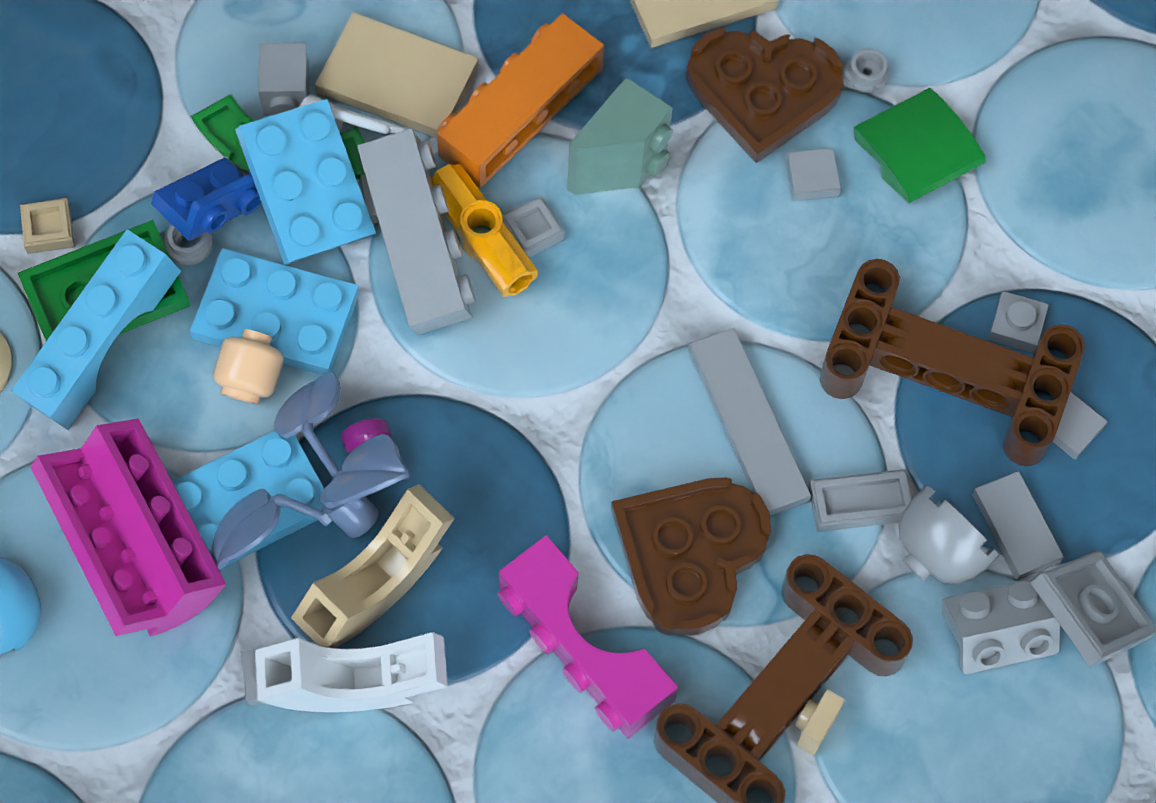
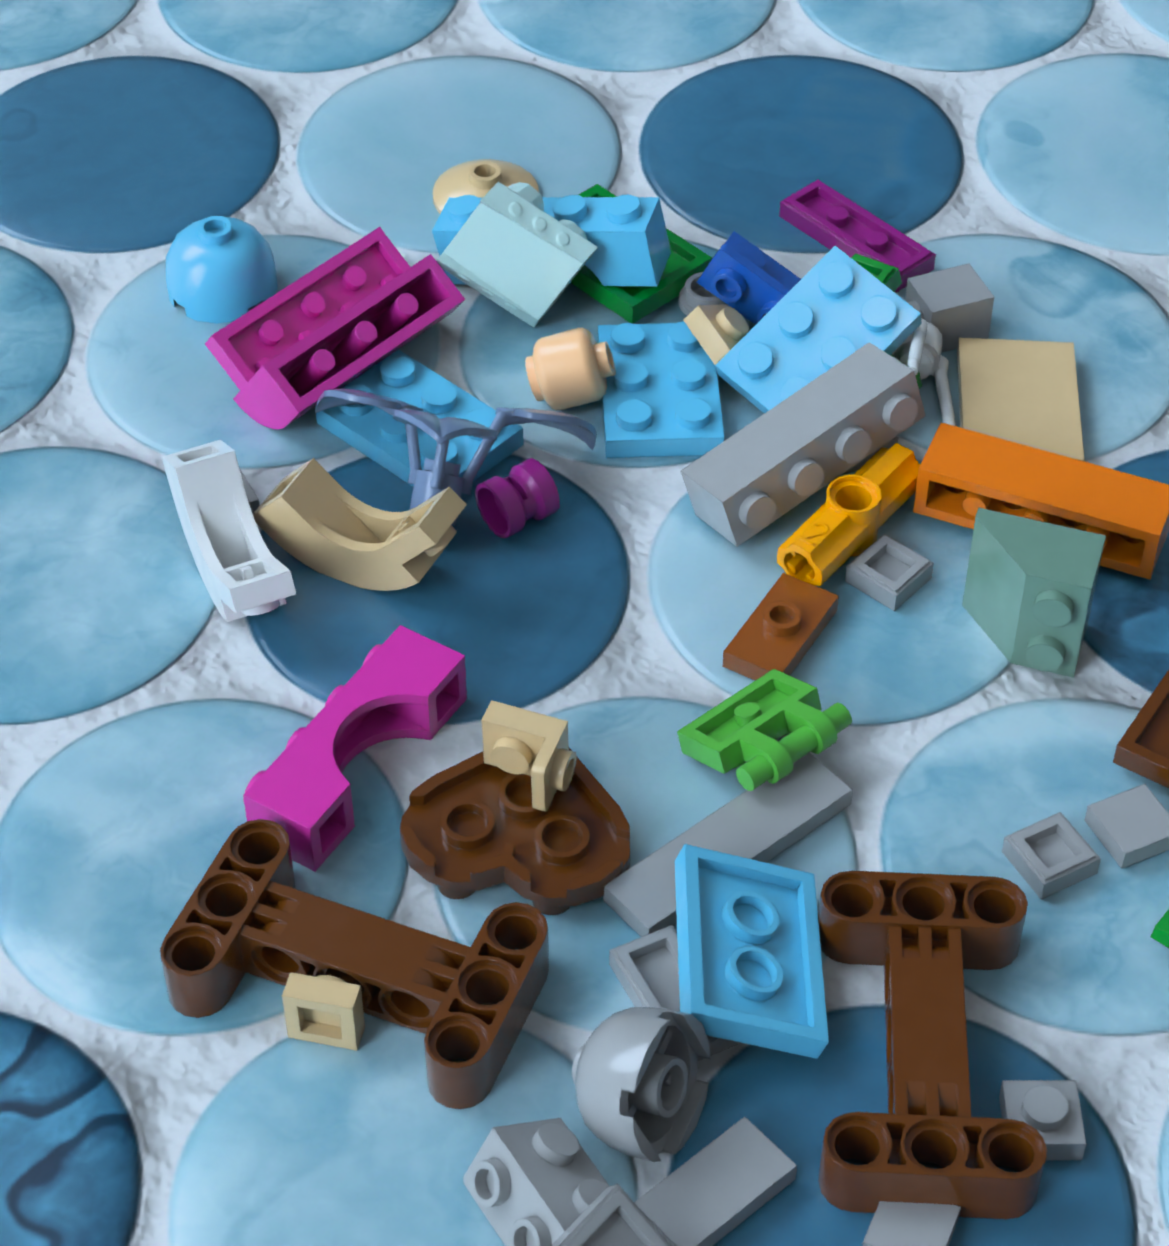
camera: 75 degrees right, 20 degrees down
(47, 226) = (678, 199): tan tile -> none
(115, 359) = (517, 252): none -> light aqua slope
(150, 107) = (844, 224): none -> magenta tile
(249, 245) = (716, 329): none -> tan plate
(565, 319) = (780, 628): none -> dark orange plate
(652, 520) = (529, 745): none -> tan bracket
(654, 368) = (752, 721): none -> bright green plate
(819, 232) = (1051, 855): none -> light grey tile
(858, 438) = (750, 951): none -> medium azure plate

